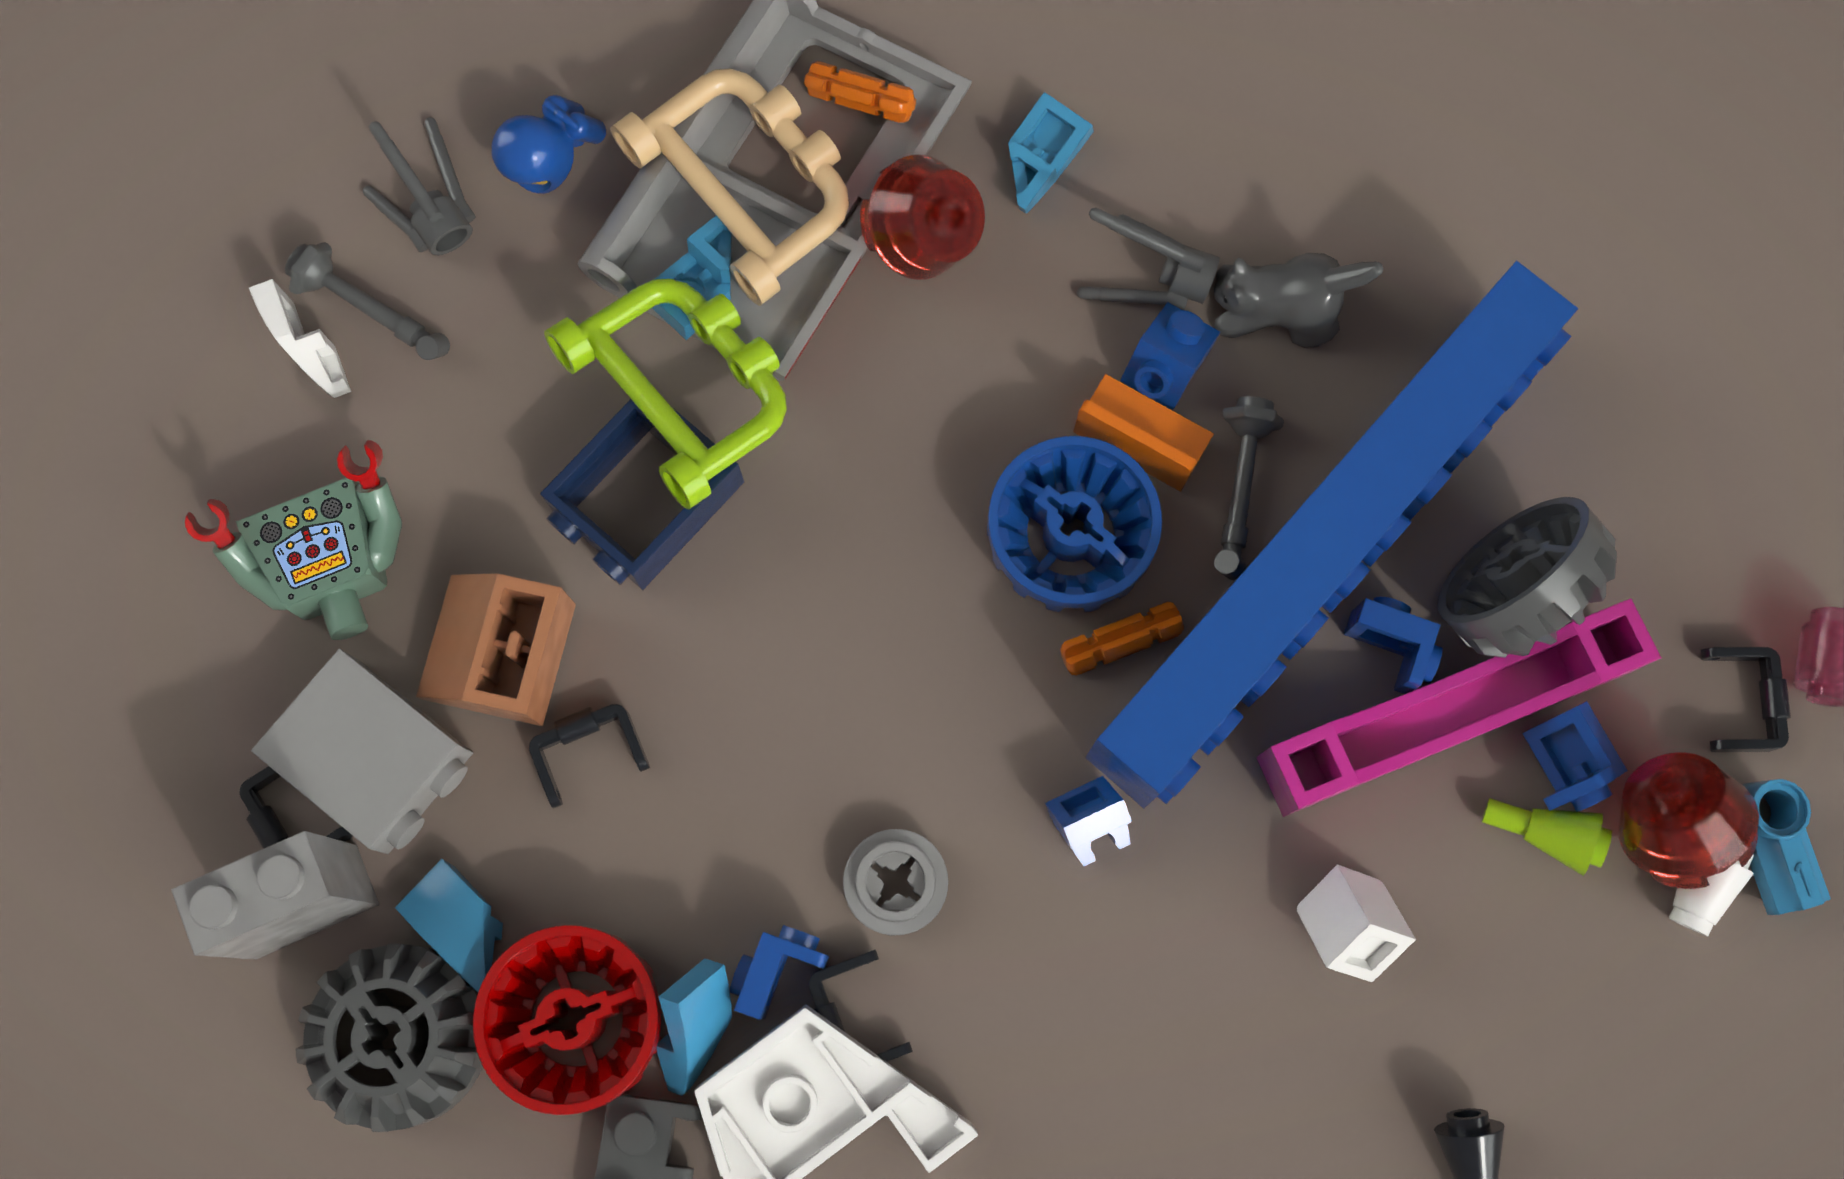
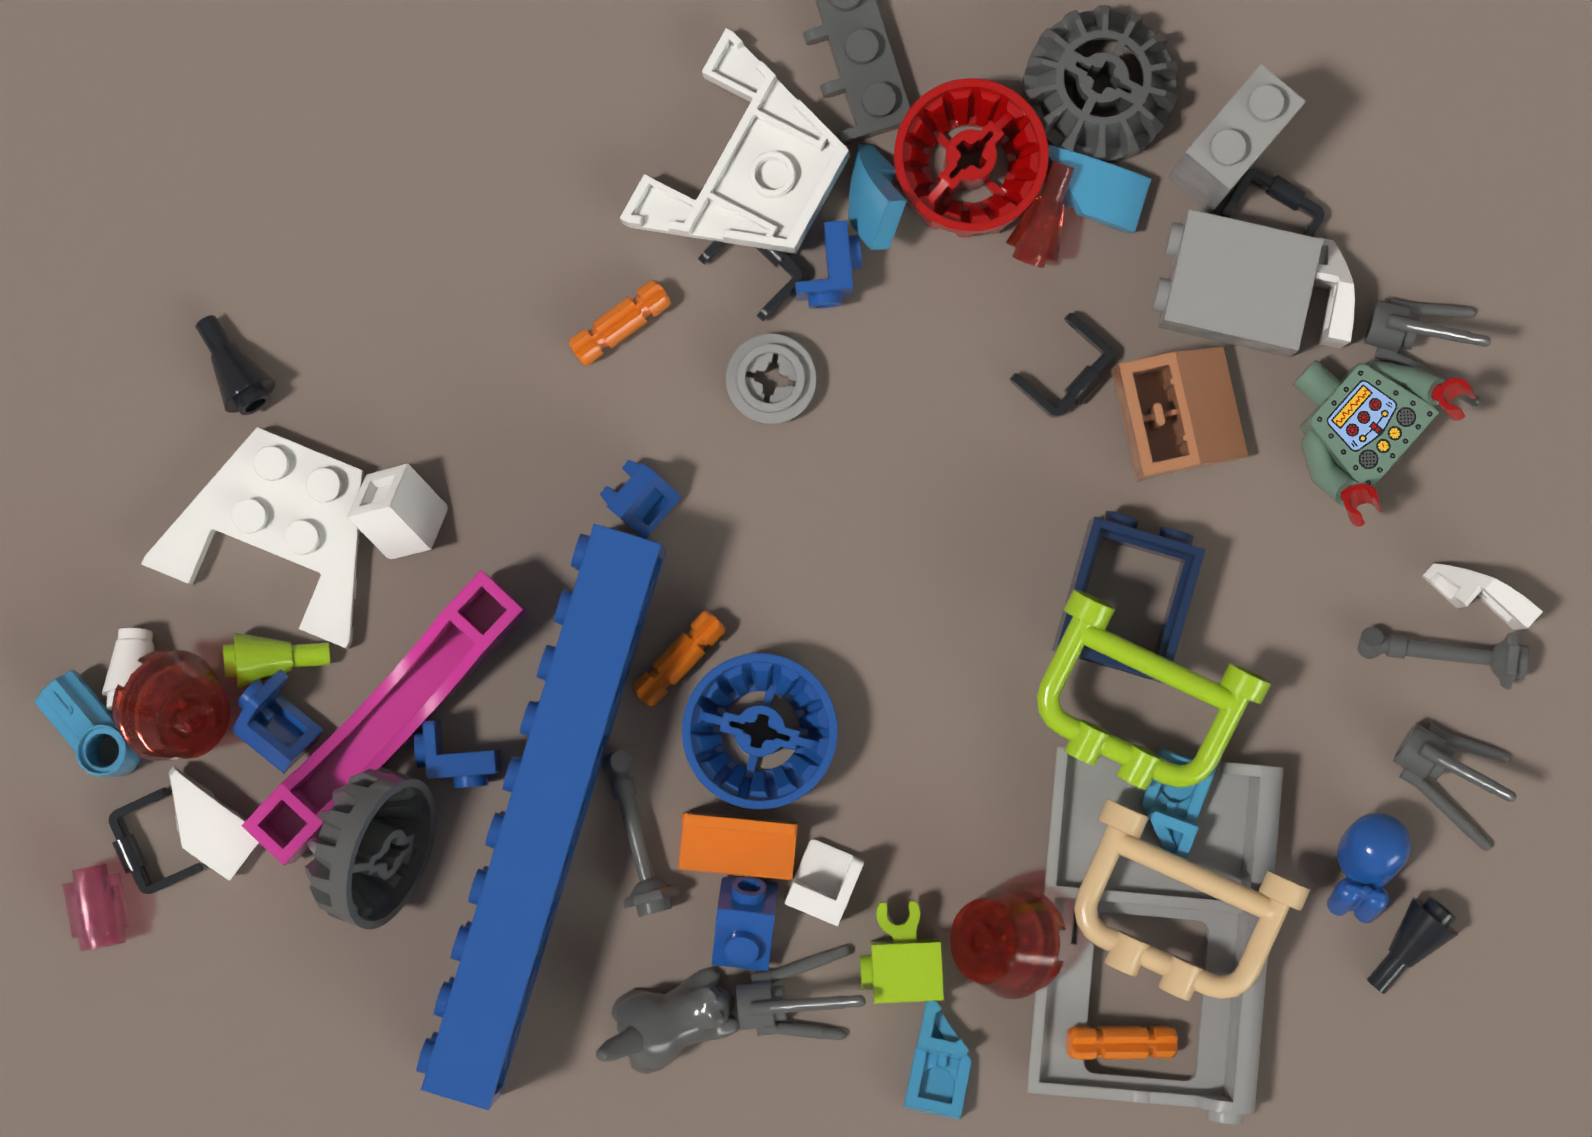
camera: 155 degrees right, 10 degrees up
(236, 636) = (1398, 322): none -> dark grey plant
(274, 685) = (1339, 310): none -> white slope
(533, 67) = (1420, 933): none -> black cone
(538, 904) = (1040, 229): none -> clear red cone
(1028, 1020) = (619, 322): none -> orange axle
(1032, 249) = (902, 967): none -> lime brick
(1074, 356) = (824, 882): none -> white panel
(1473, 991) = (287, 505): none -> white wing
(1684, 688) = (208, 826): none -> white slope

